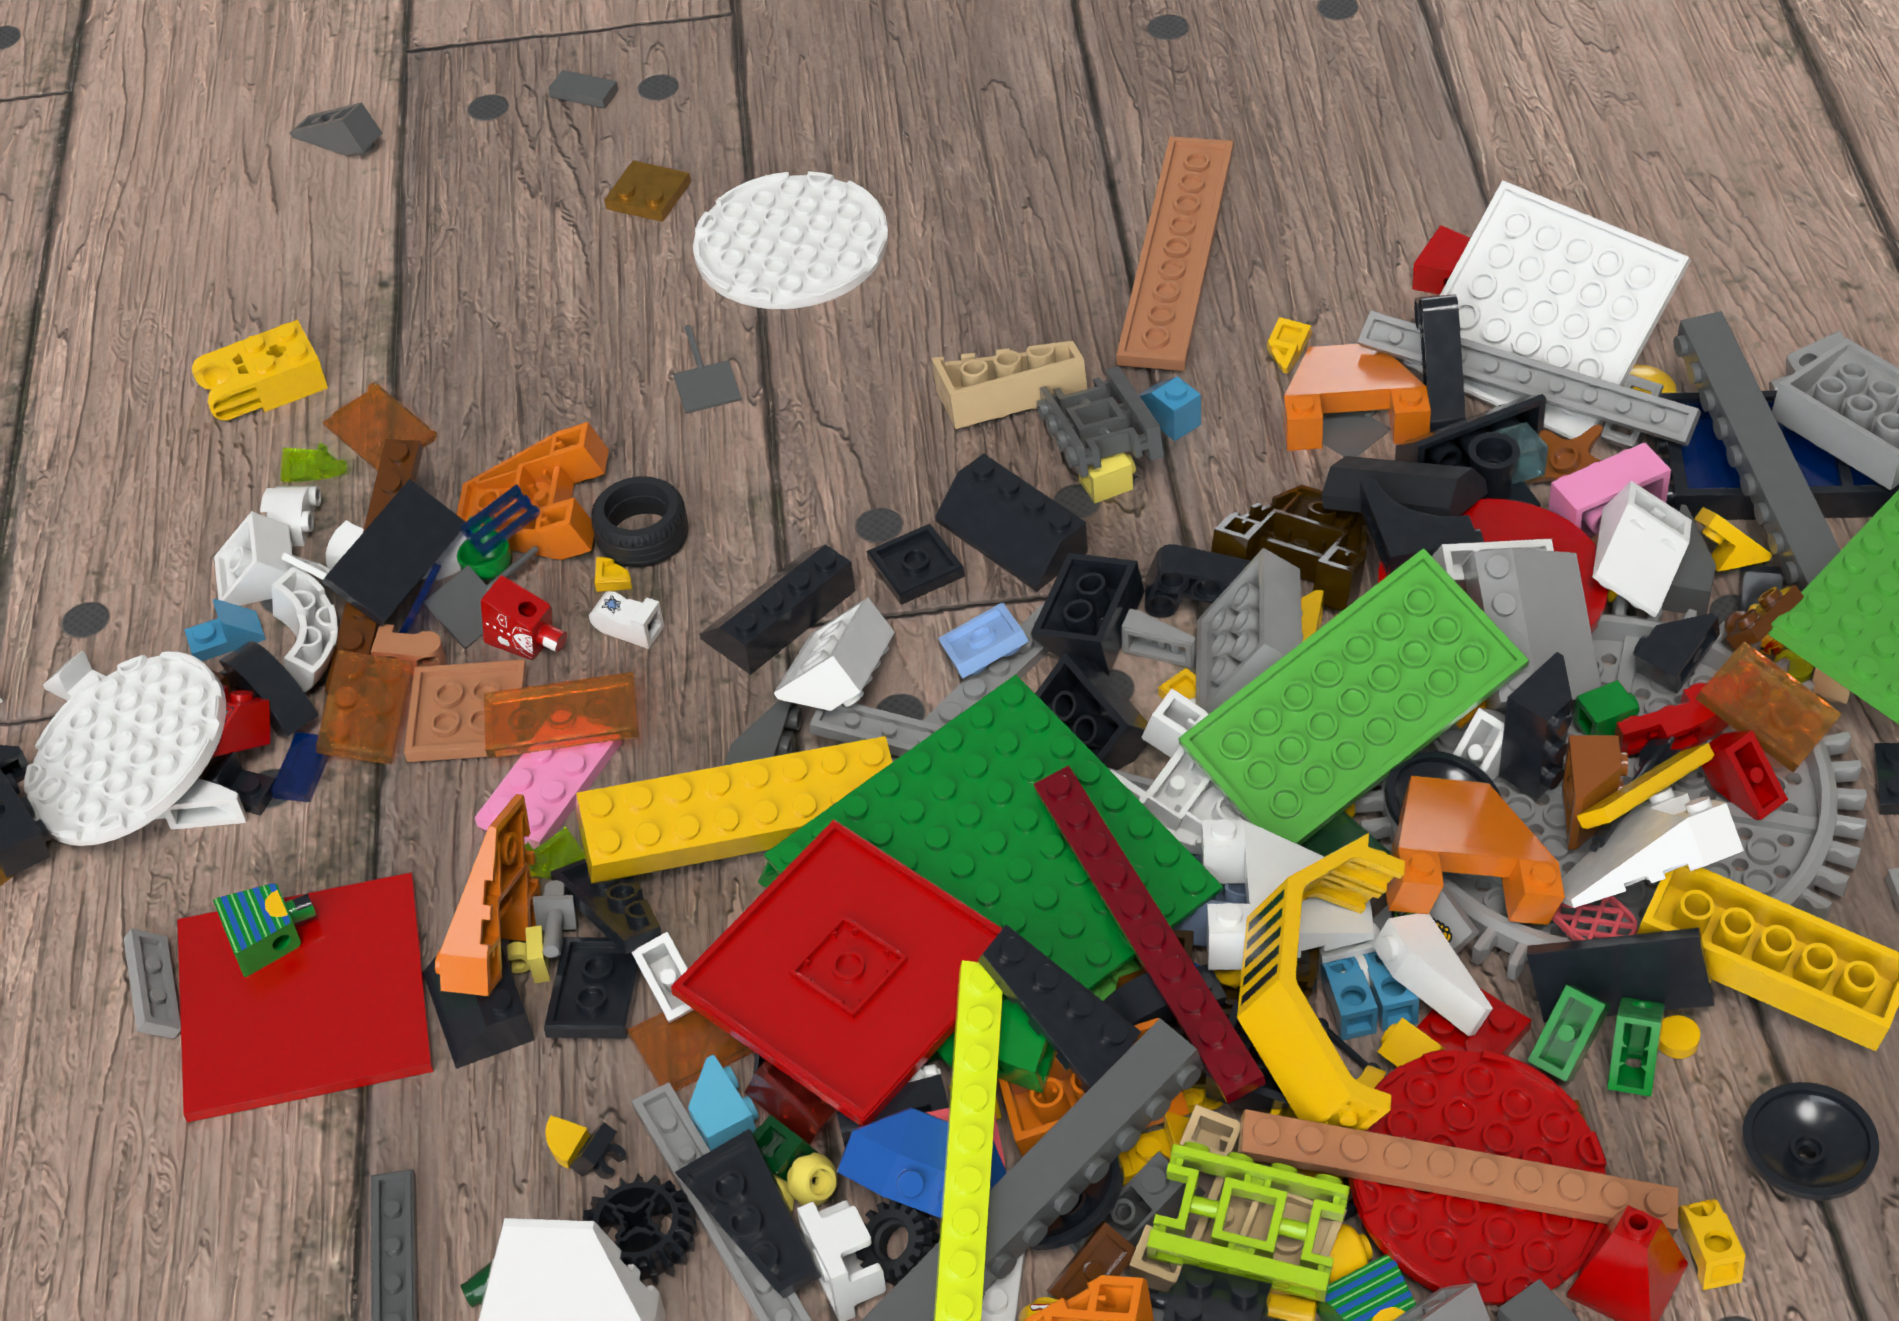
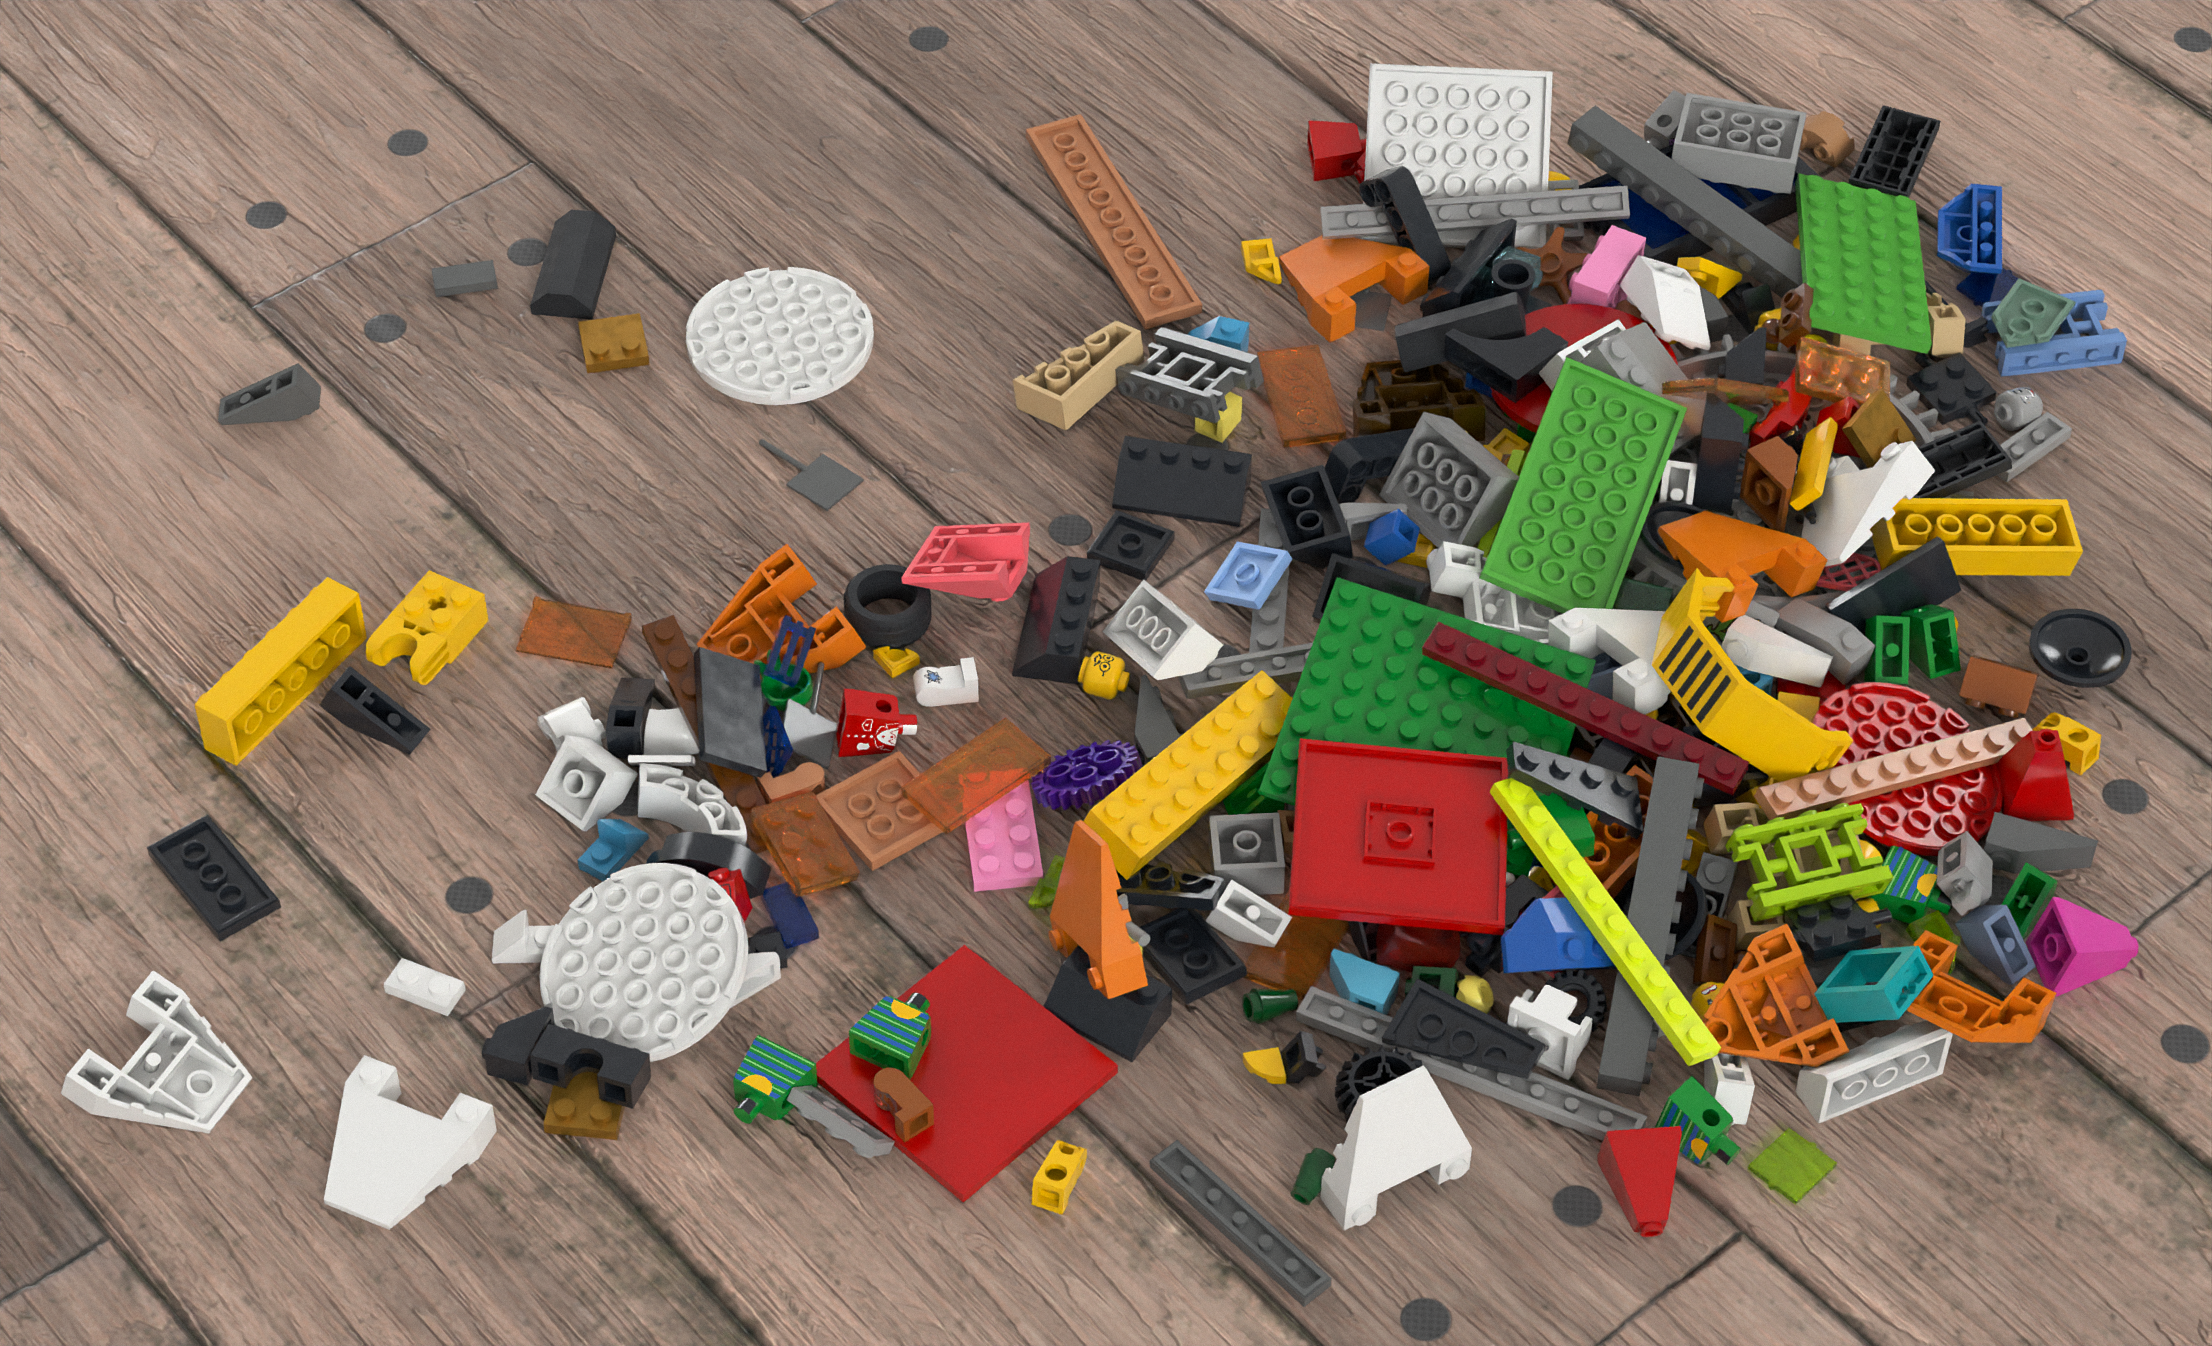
camera: 40 degrees left, 0 degrees up
(110, 355) = (280, 671): none -> yellow brick
(130, 903) = (768, 1078): none -> green torso
(154, 423) = (372, 712): none -> black slope
(208, 996) = (905, 1102): none -> dark orange leg
(277, 1142) = (1058, 1176): none -> yellow leg
(310, 464) = (544, 686): clear neon green slope -> none
(320, 519) = (628, 717): none -> black slope
(618, 1078) = (1267, 1004): none -> dark green cone
(631, 761) = (1085, 774): none -> dark purple gear
(677, 113) = (574, 266): none -> black piece
(712, 905) = (1248, 851): none -> light grey brick
(745, 512) = (972, 560): none -> coral slope
(762, 672) = (1103, 675): none -> yellow head
(1156, 665) = (1392, 537): none -> blue brick
(1206, 488) = (1301, 396): none -> clear orange tile
(1509, 985) = (1830, 635): none -> light grey slope
(1606, 664) = (1727, 390): none -> clear orange tile
(1683, 1134) = (1998, 685): none -> dark orange slope
(1764, 787) = (1876, 427): none -> pearl gold plate
(1804, 856) = (1962, 461): none -> black piece

